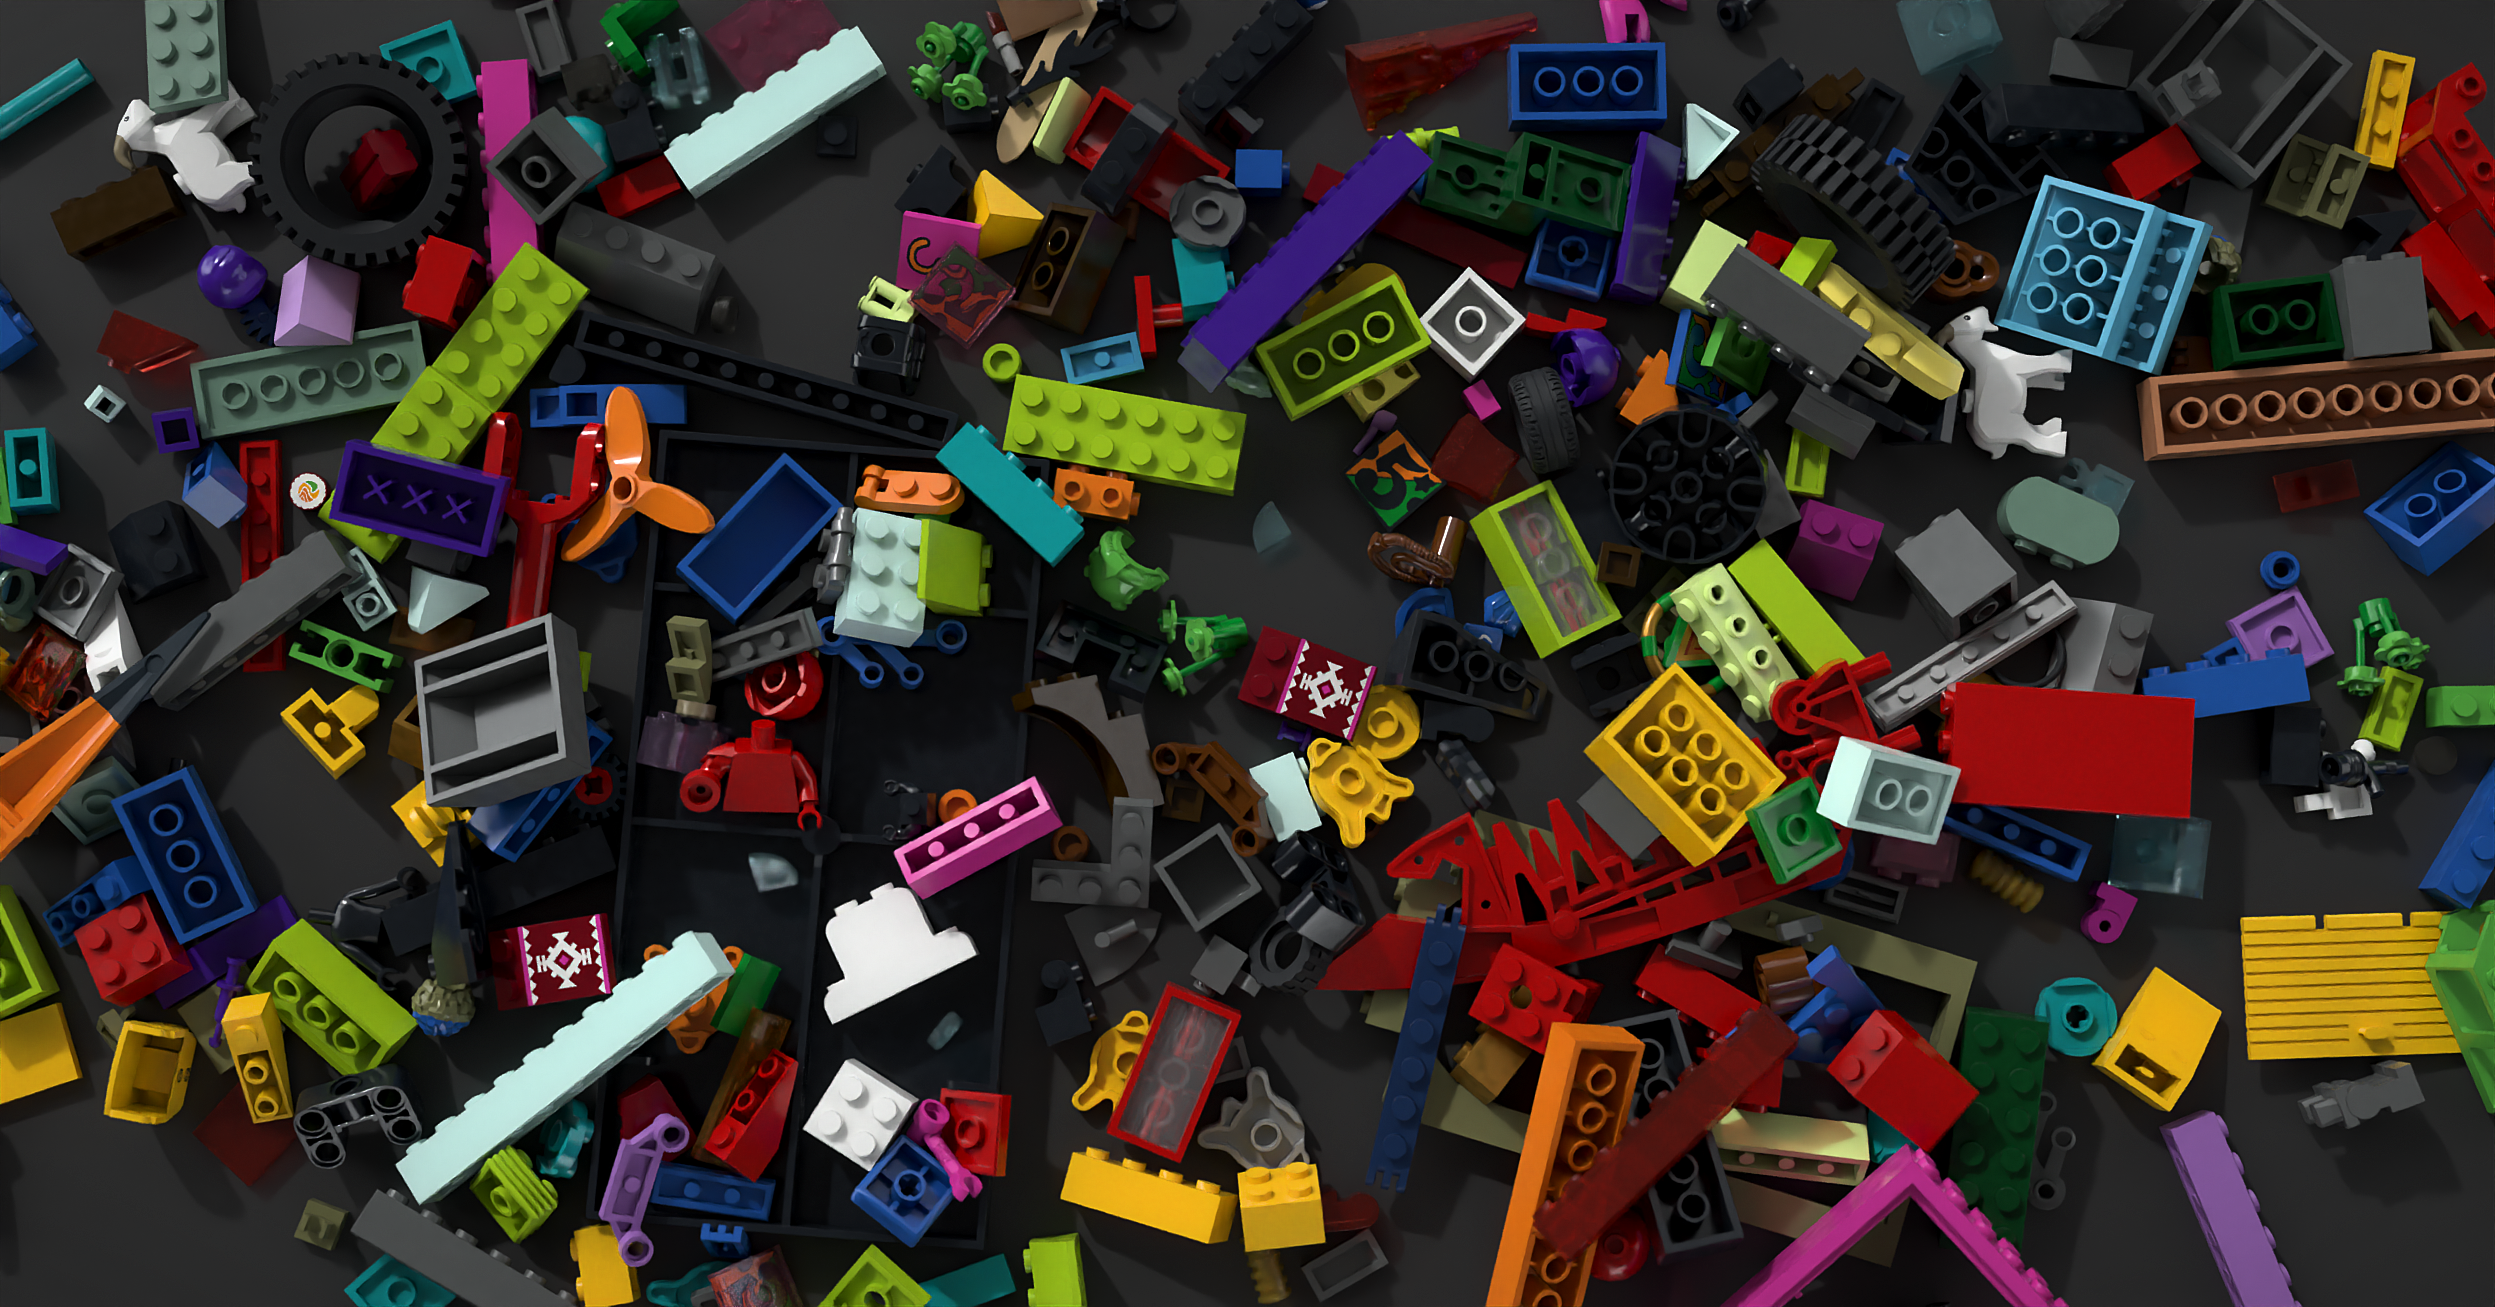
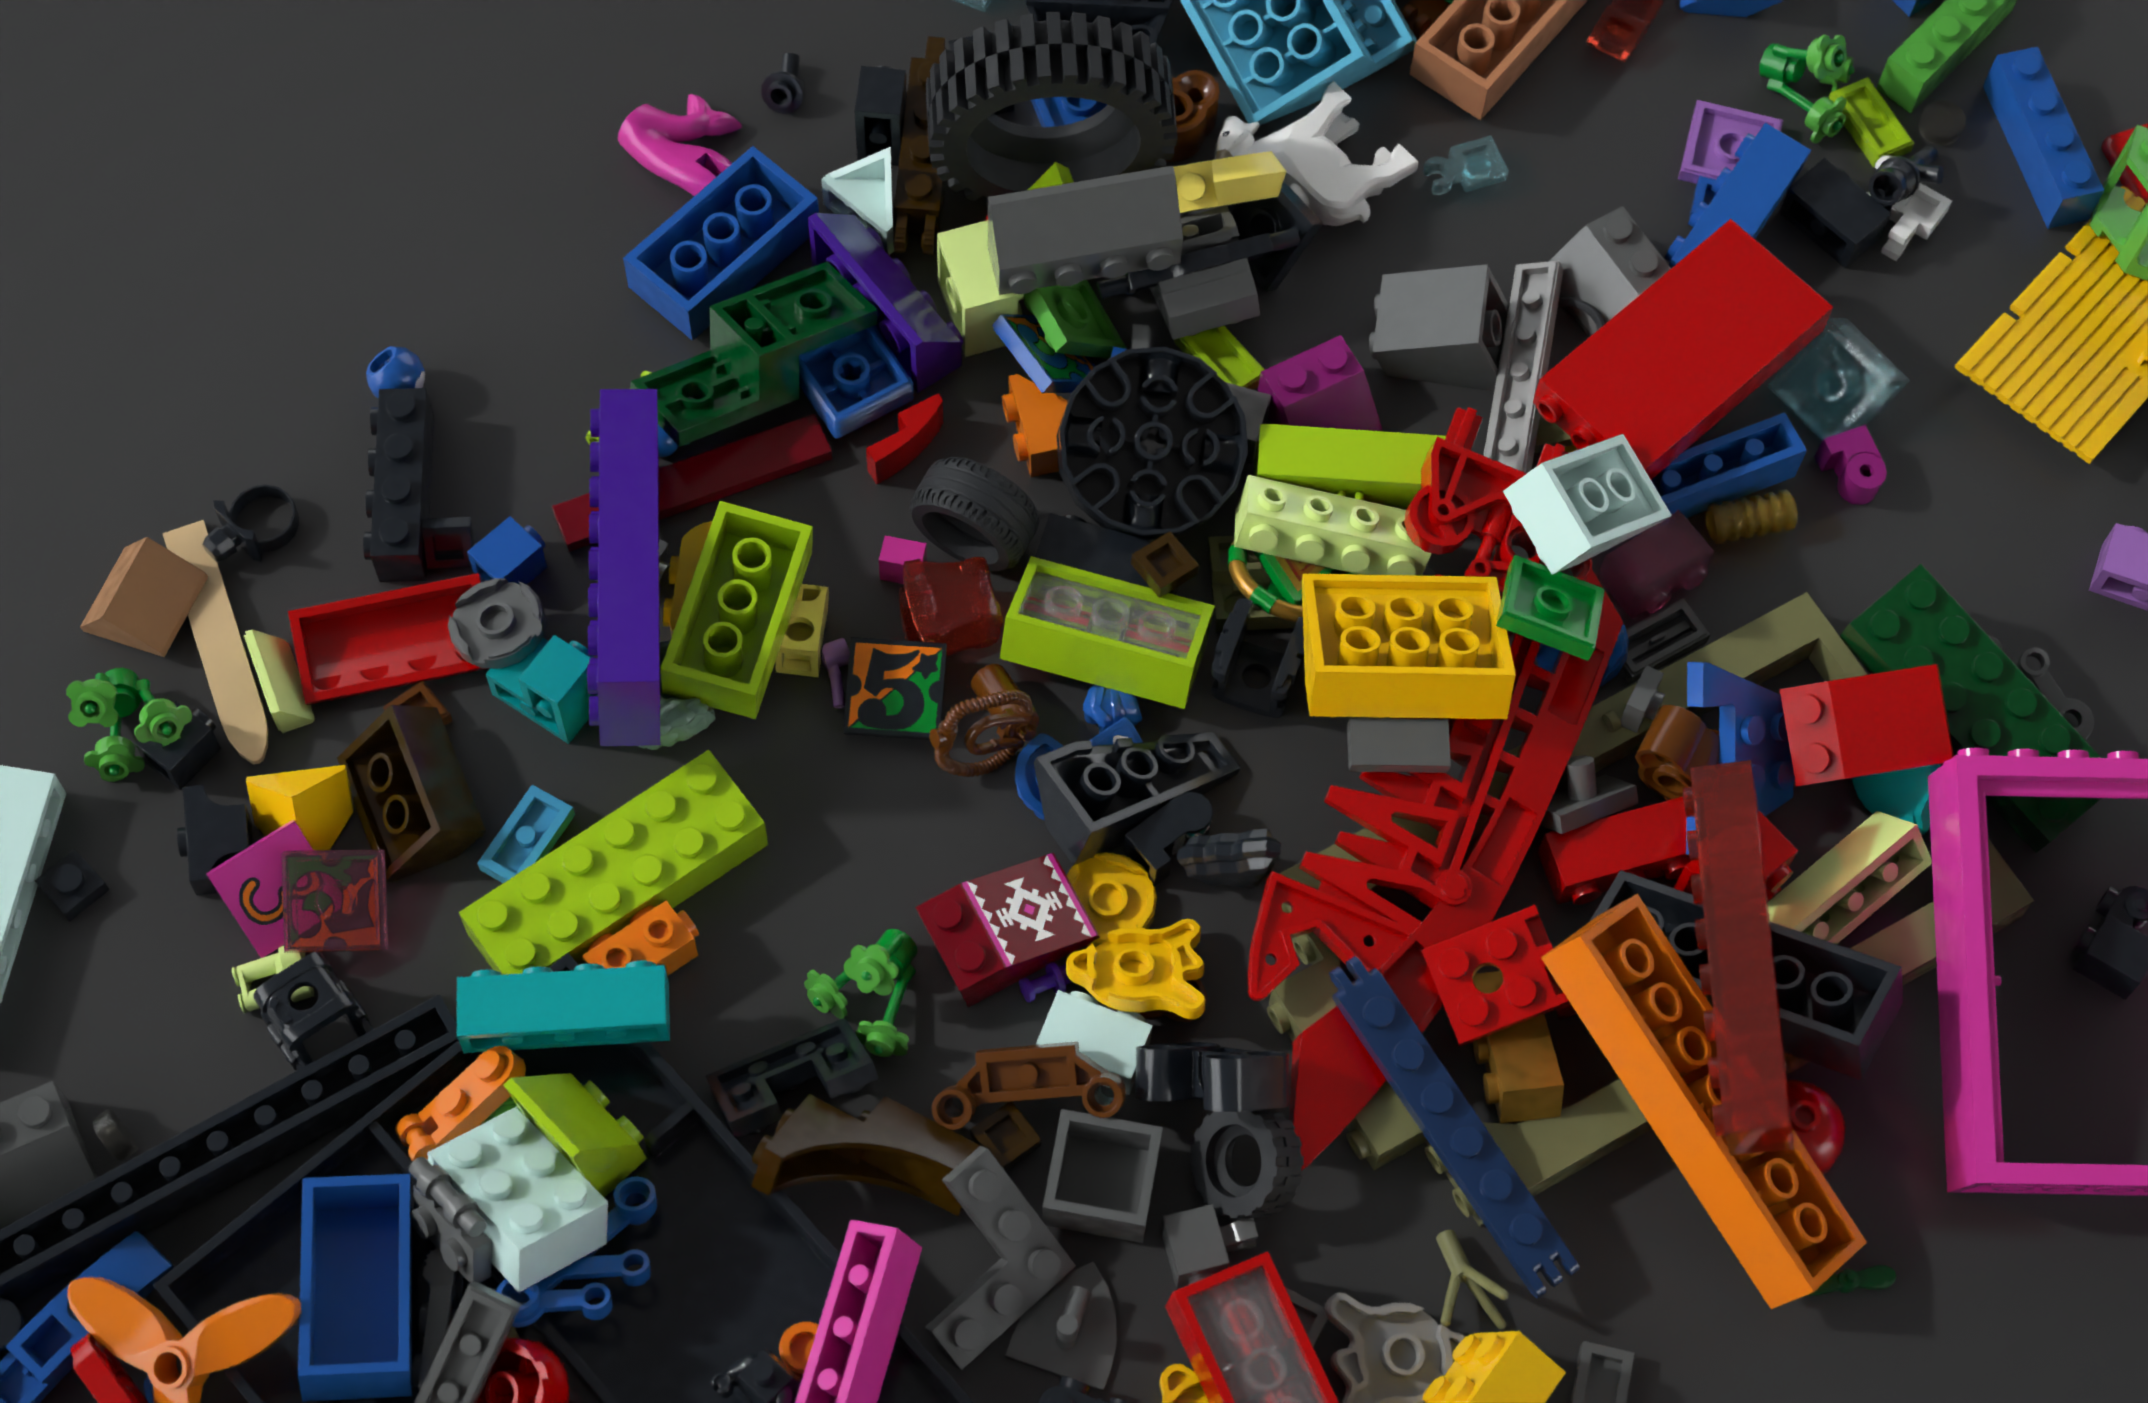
camera: 50 degrees left, 20 degrees down
(1002, 363) = (434, 931): lime tile -> none
(1004, 43) = (156, 666): light grey piece -> none
(1066, 56) = (229, 626): black piece -> none
(1070, 844) = (942, 1283): reddish brown tile -> none
(1116, 574) = (735, 994): bright green helmet -> none
(1129, 157) = (375, 637): black brick -> none
(1153, 316) = (535, 760): red tile -> none
(1269, 528) = (830, 836): clear light blue tile -> none
(1346, 1125) = (1475, 1281): none -> olive plant
(1349, 1213) = (1558, 1332): clear red leg -> none
(1400, 68) = (546, 373): clear red wedge -> none
(1470, 324) = (834, 497): white brick -> none
(1585, 364) = (956, 433): dark purple cylinder -> none
(2057, 523) = (1470, 219): sand green brick -> none
(2092, 1032) = (1931, 541): teal plate -> none
(2158, 1041) = (2012, 522): yellow slope -> none
(2291, 570) = (1675, 91): blue plate -> none

